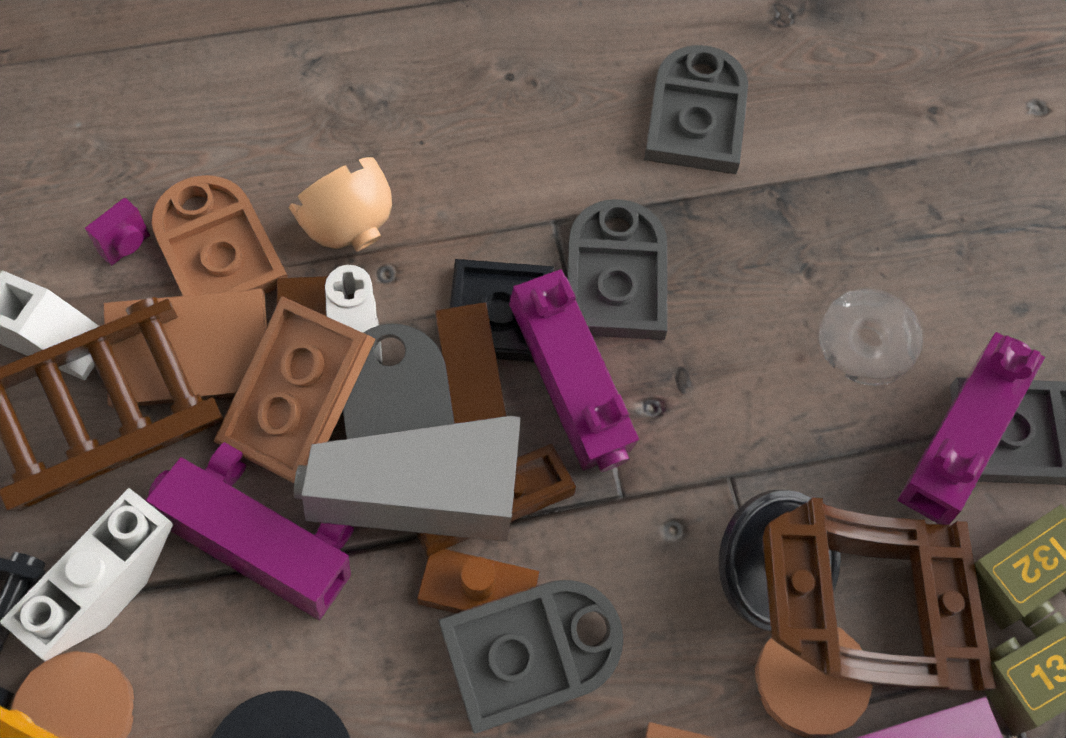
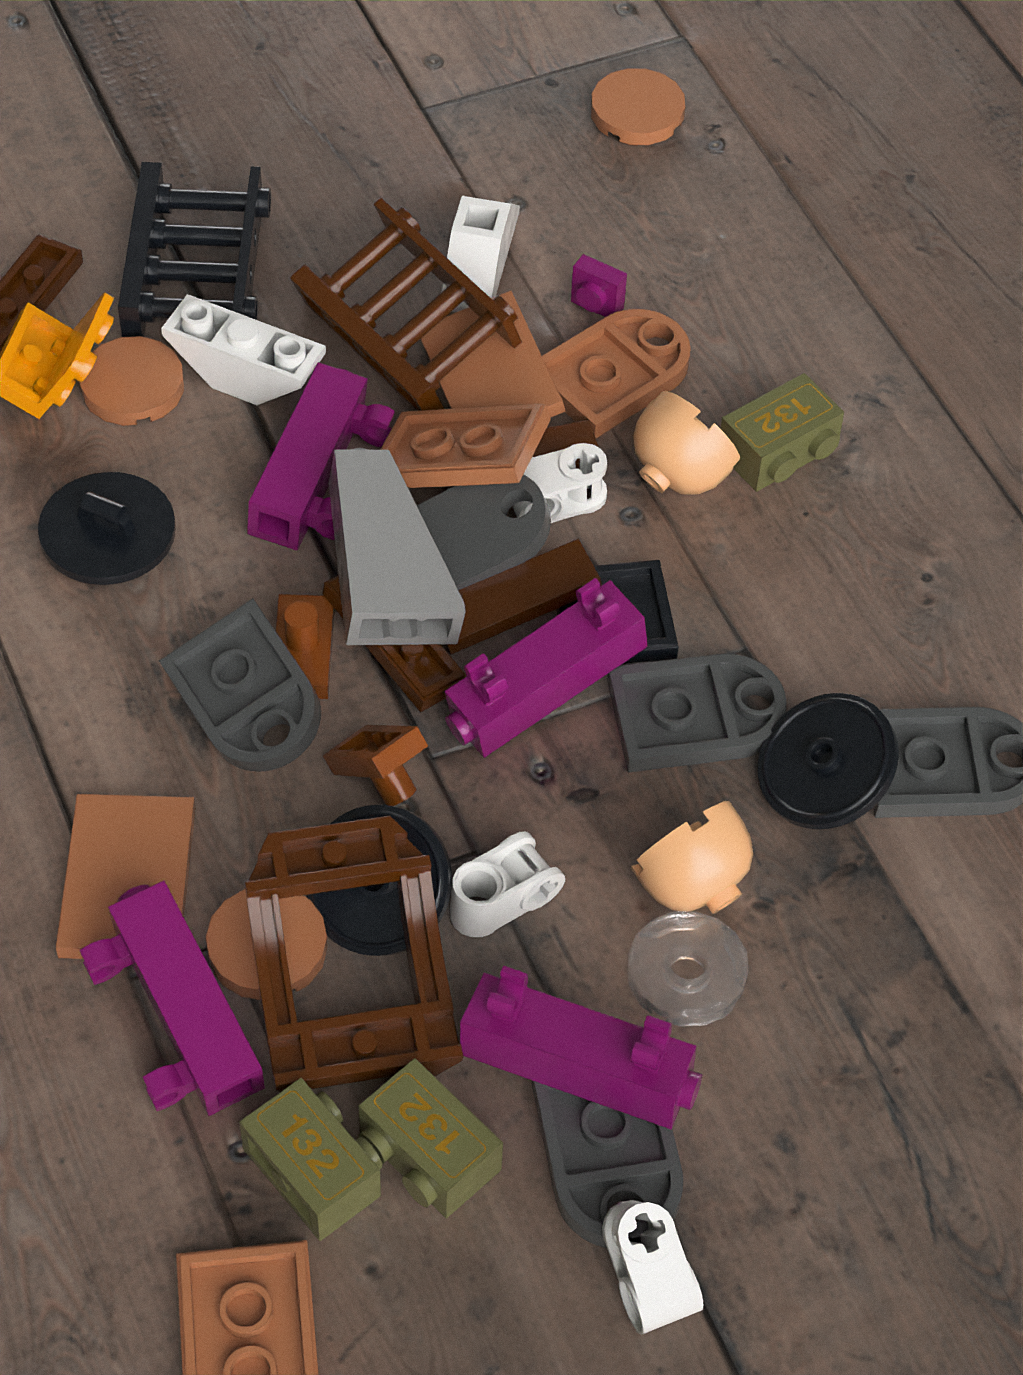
camera: 80 degrees right, 10 degrees down
(342, 124) = (783, 431): none -> olive brick
(643, 535) = (379, 755): none -> dark orange tile
(702, 182) = (828, 761): none -> black shield
(782, 449) = (511, 880): none -> white piece
(788, 298) = (698, 862): none -> light nougat cylinder

